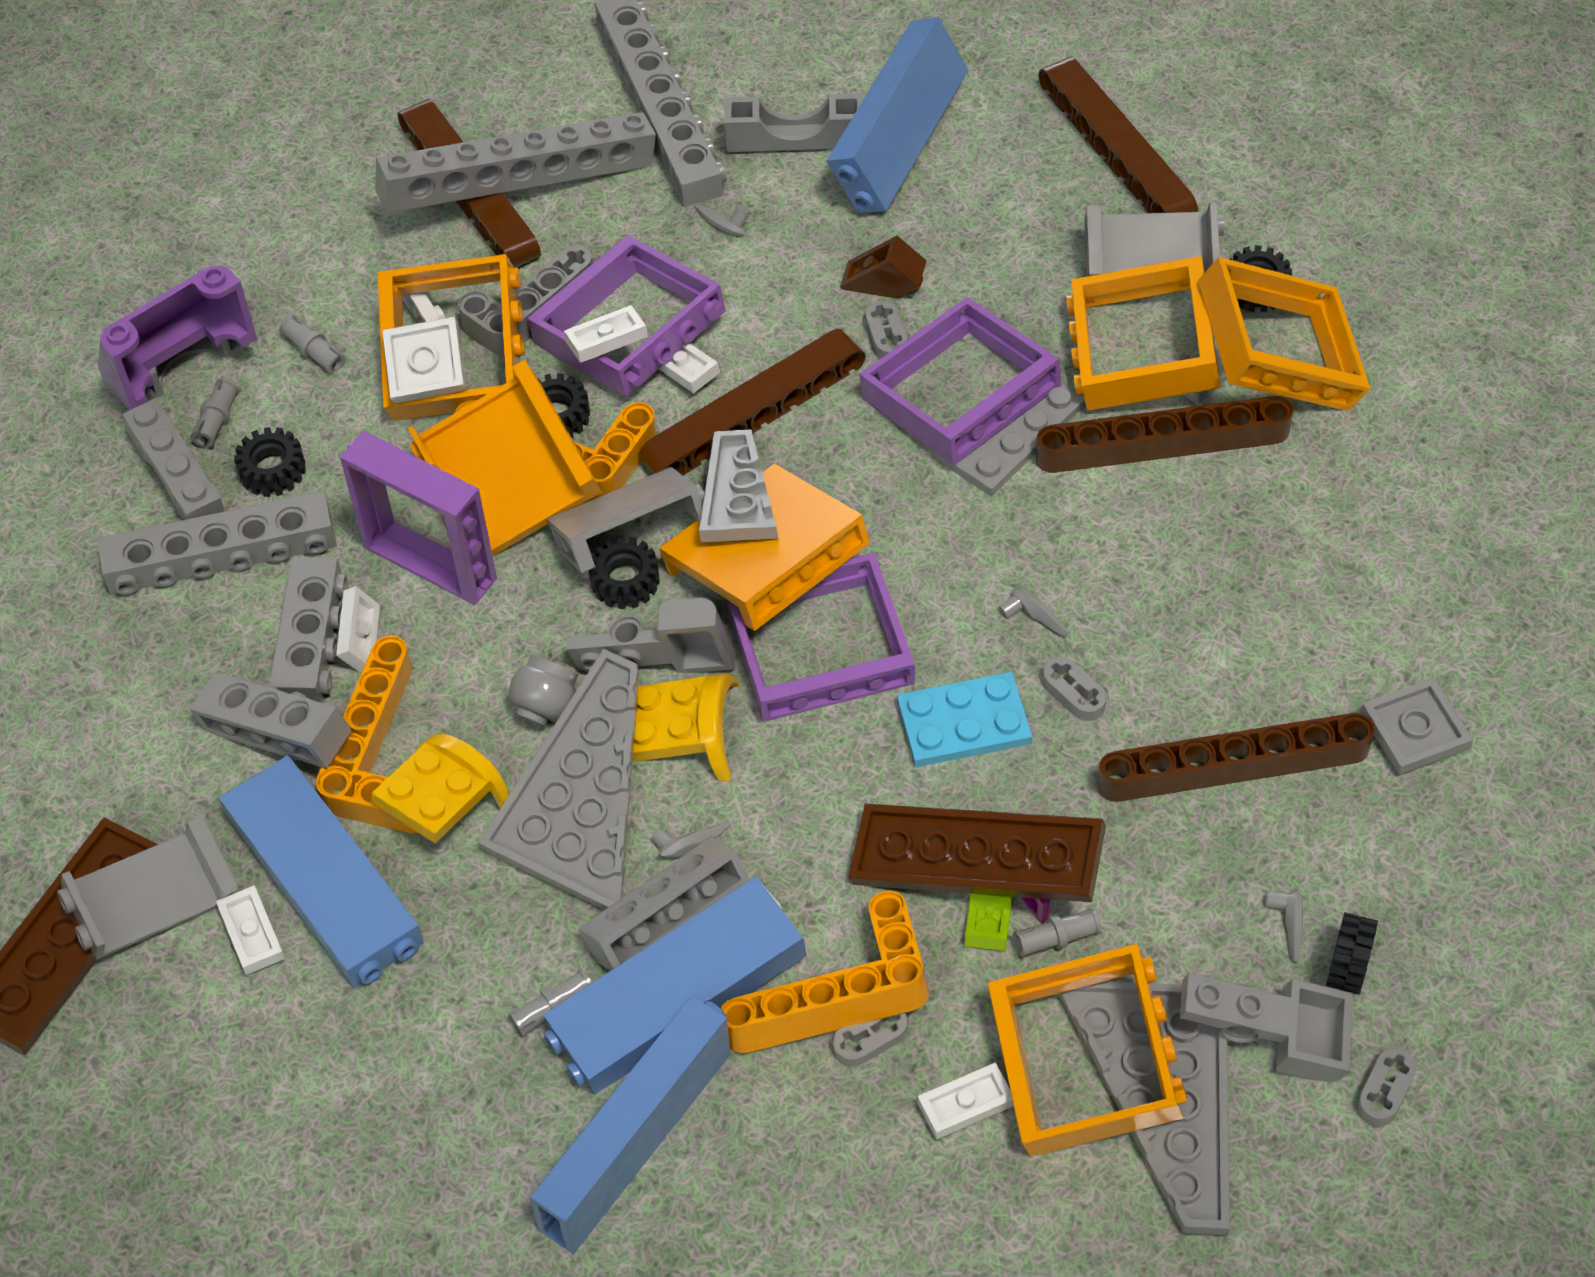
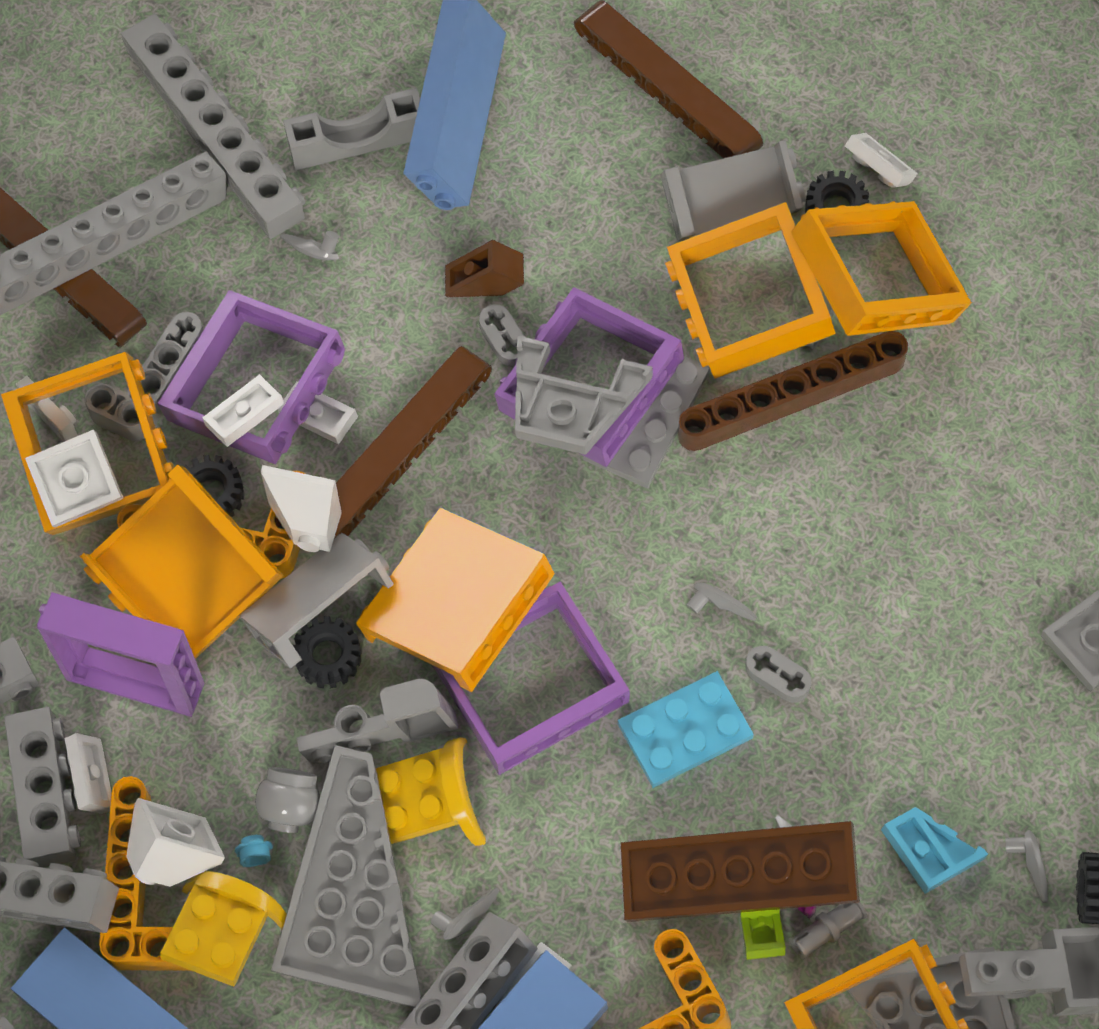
camera: 15 degrees left, 10 degrees up
(412, 703) = (170, 844): none -> white slope
(496, 730) = (254, 851): none -> medium azure plate
(638, 425) = (304, 505): none -> white slope
(735, 492) = (416, 557): light grey wing -> none
(927, 398) = (566, 411): none -> light grey wing
(1185, 883) = (930, 849): none -> medium azure wing
(1250, 745) = (953, 698): reddish brown beam -> none
(1305, 240) = (871, 153): none -> white plate

